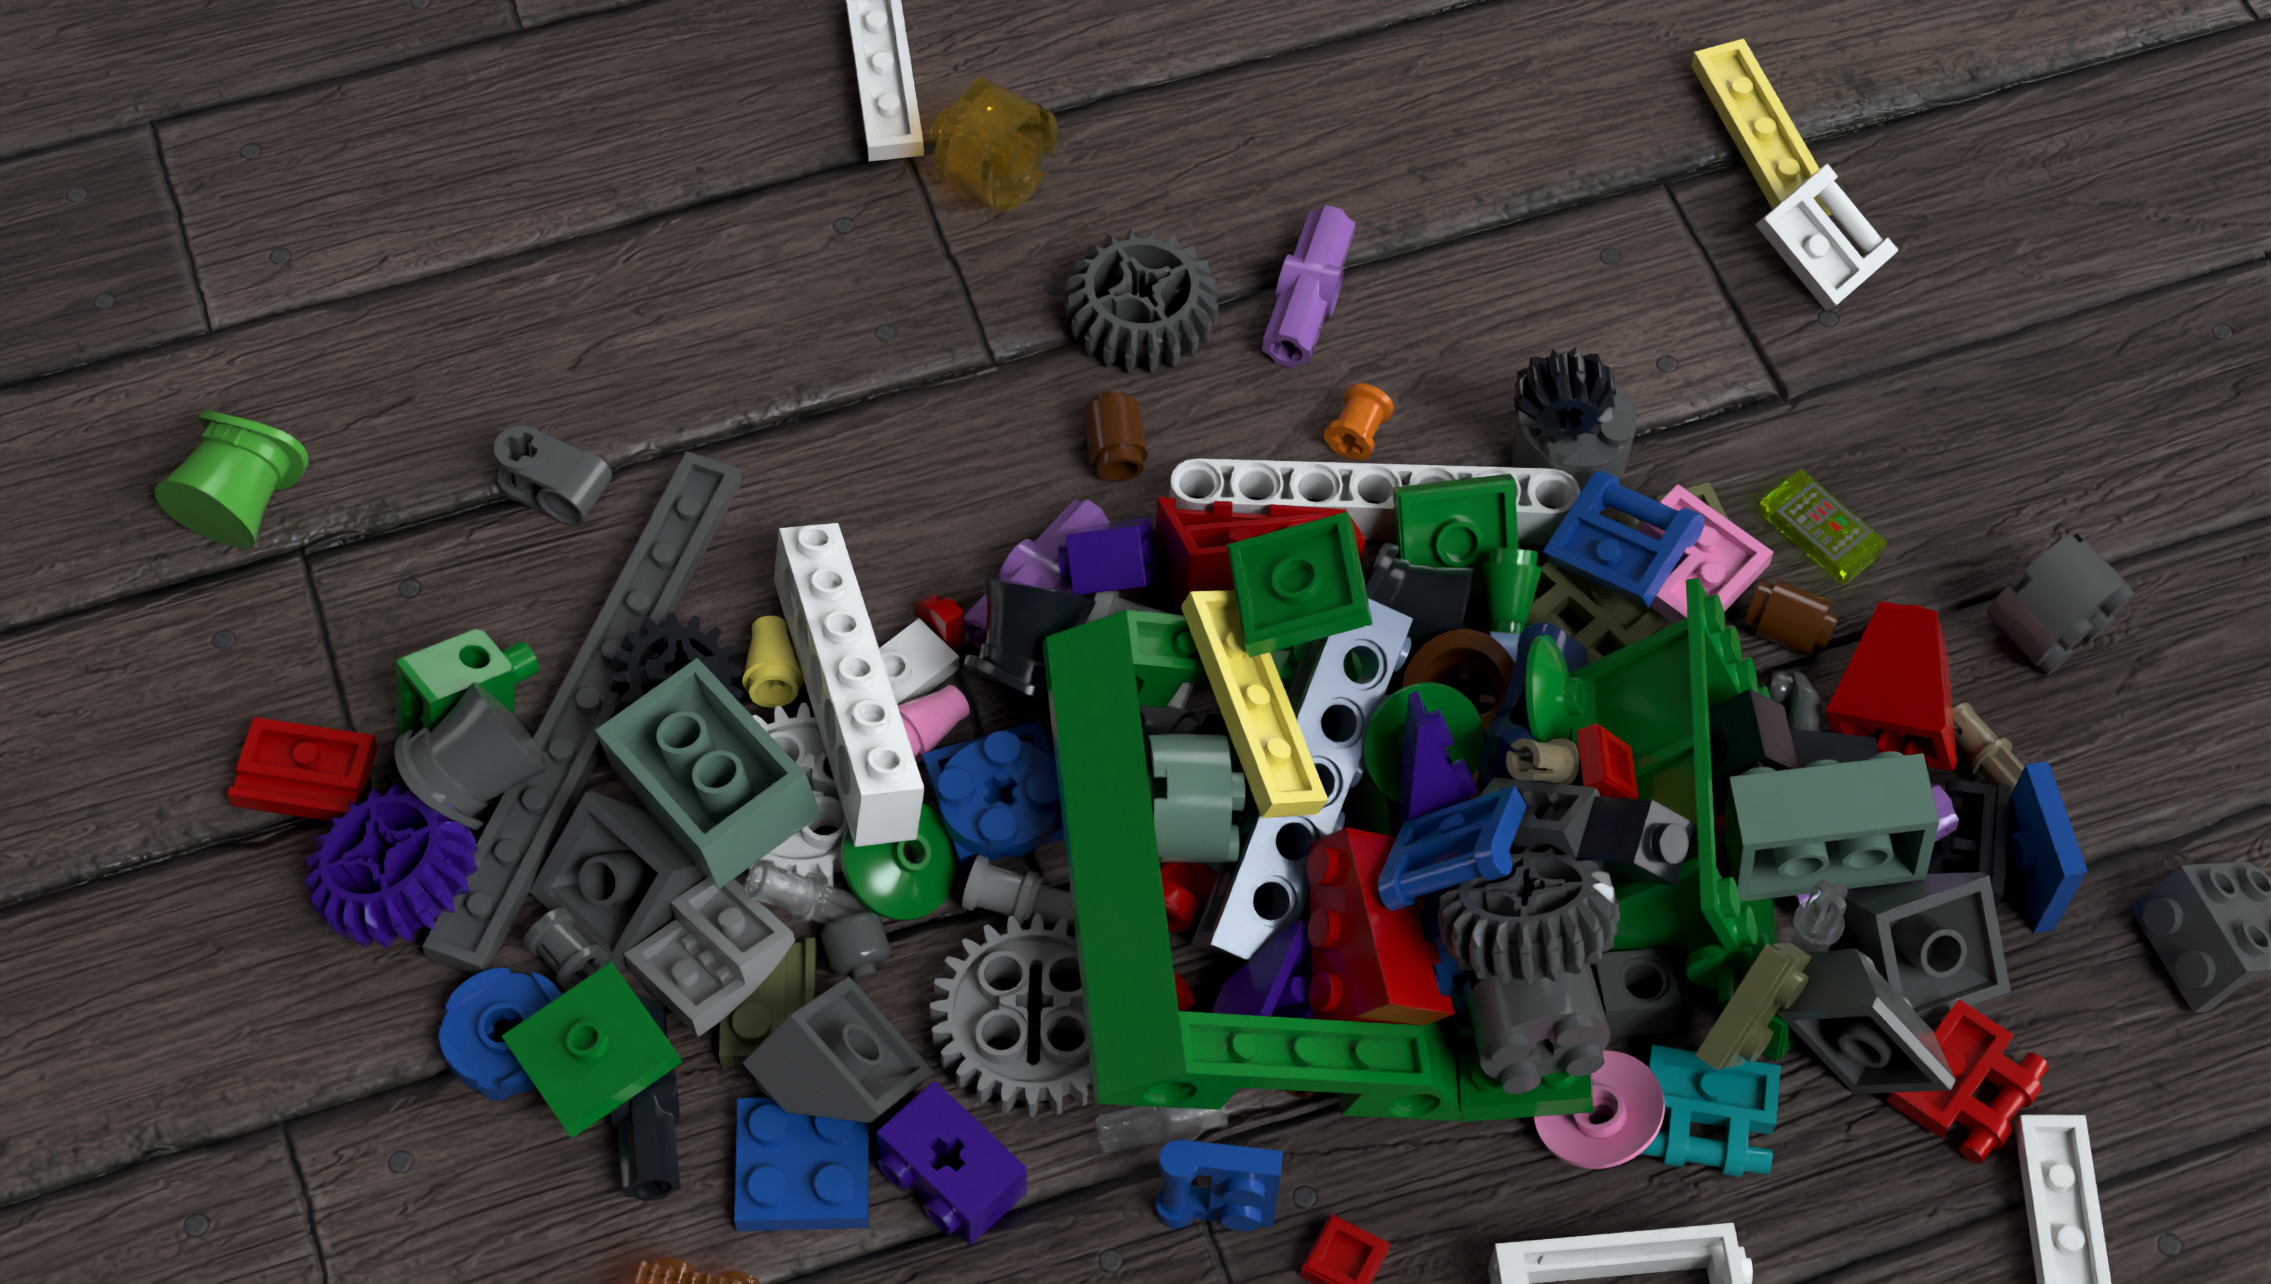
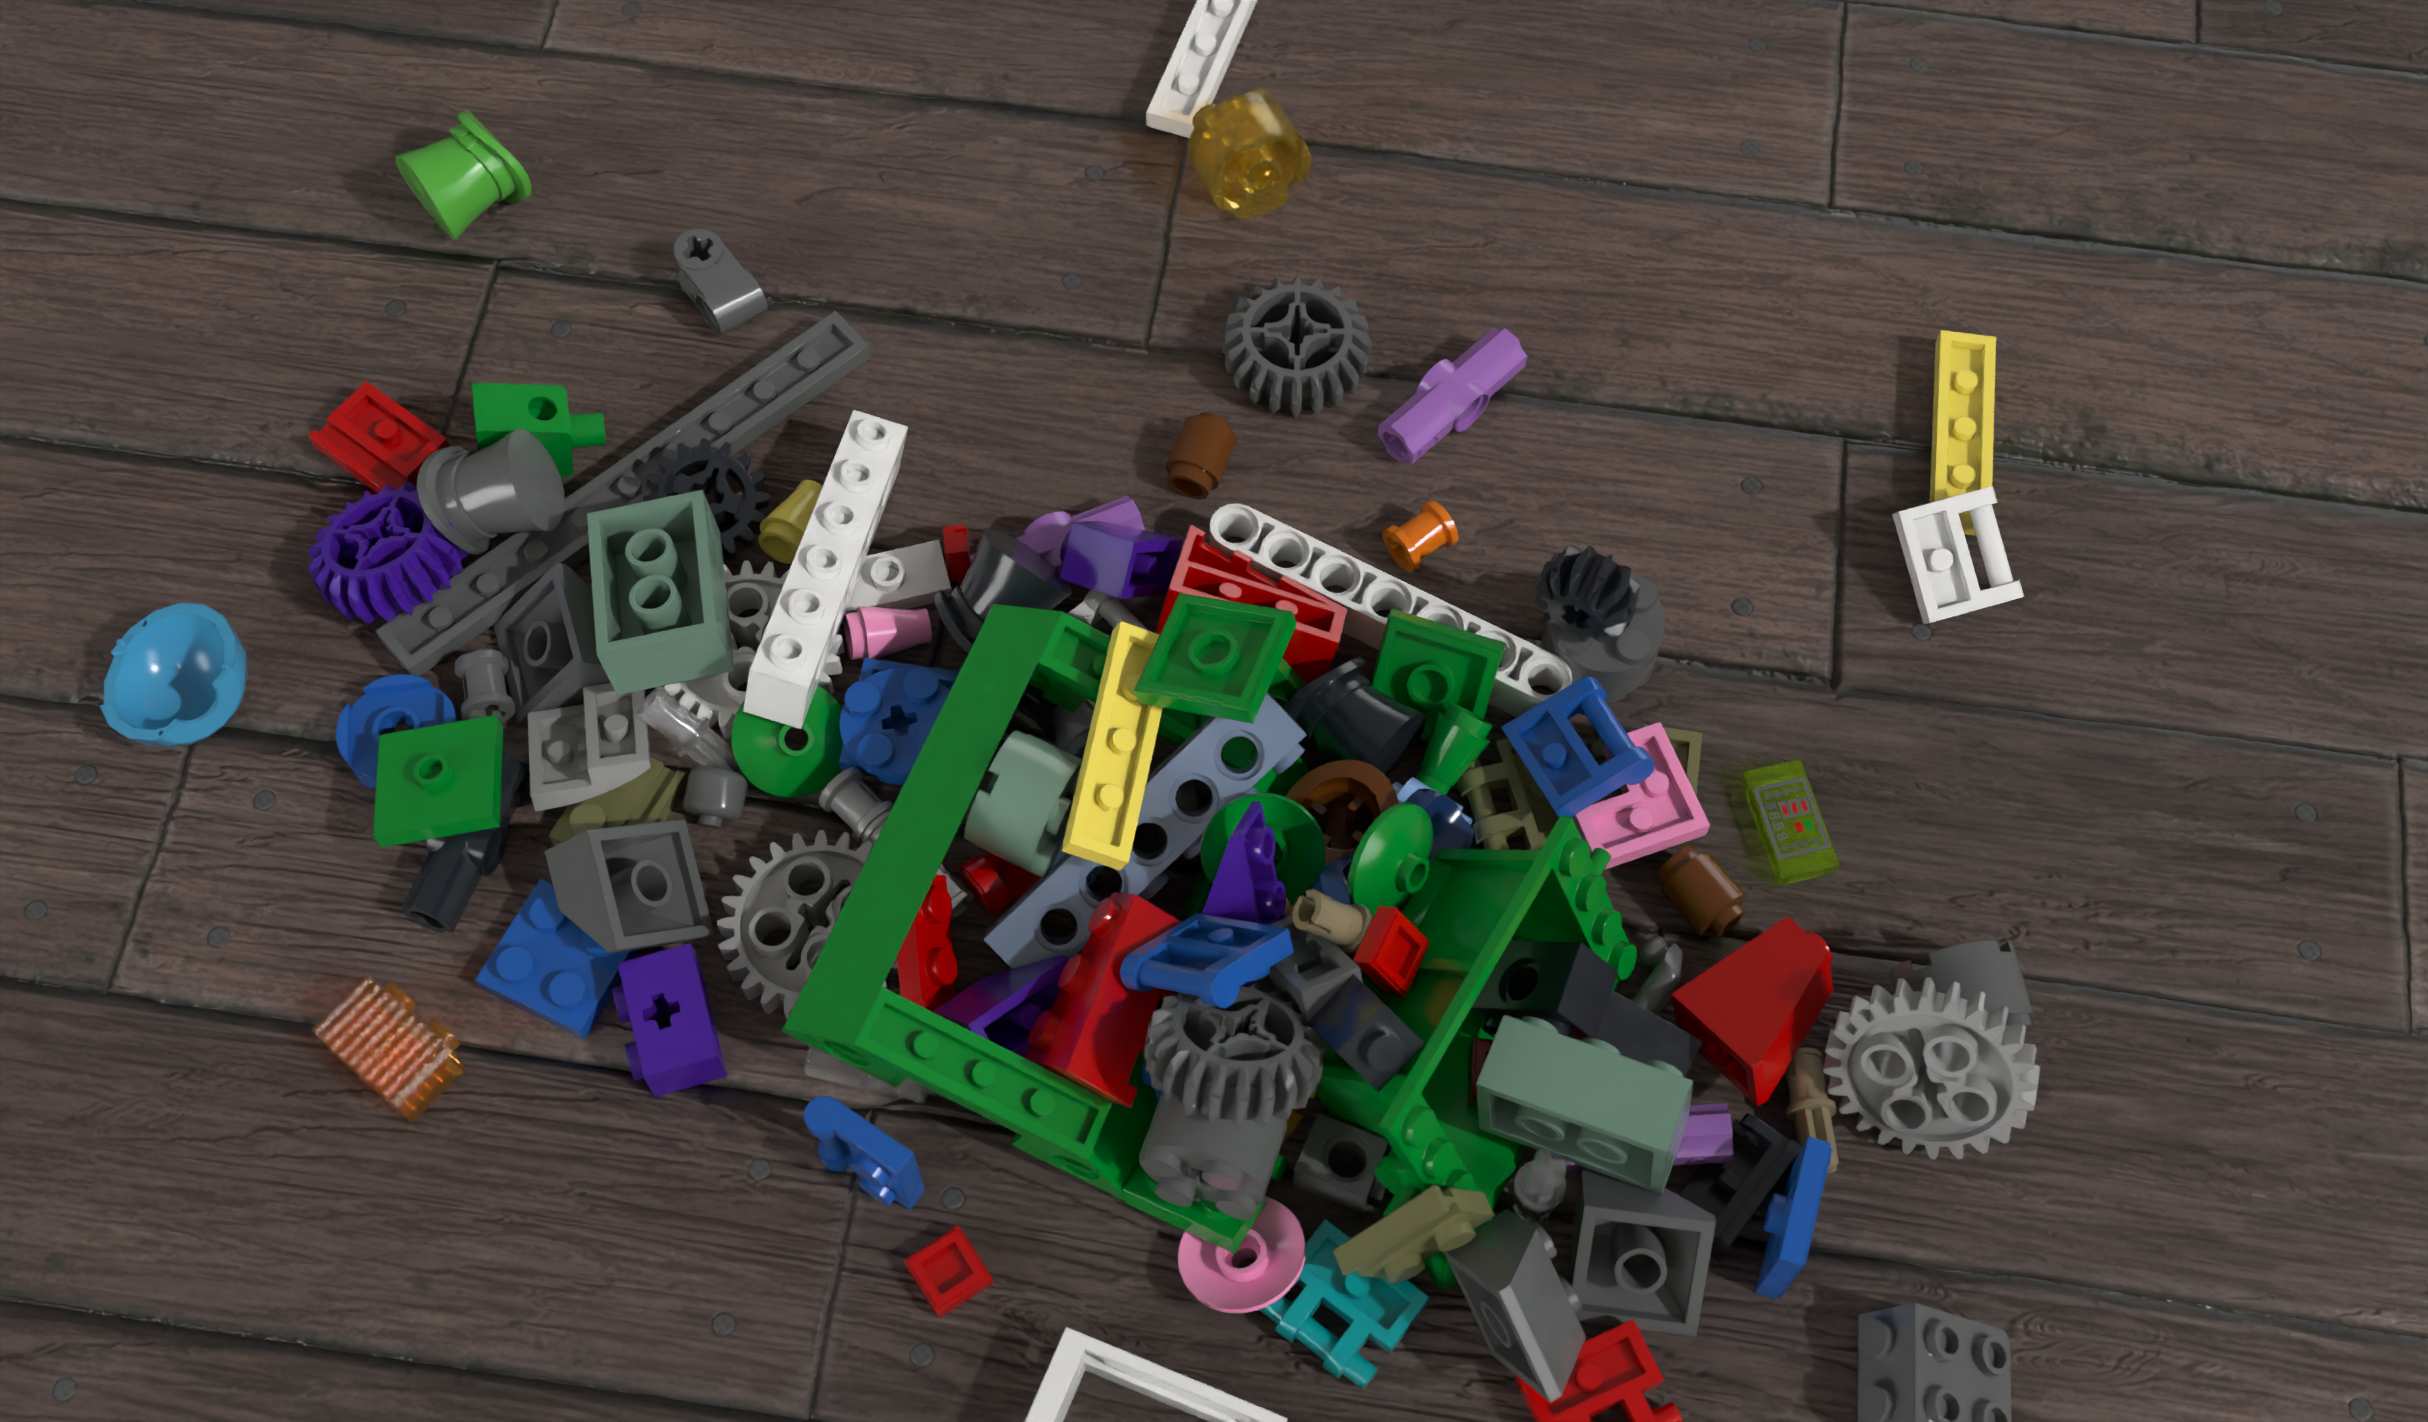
camera: 30 degrees right, 5 degrees up
(251, 1076) = (175, 677): none -> dark azure cylinder
(2119, 638) = (1979, 1062): none -> light grey gear

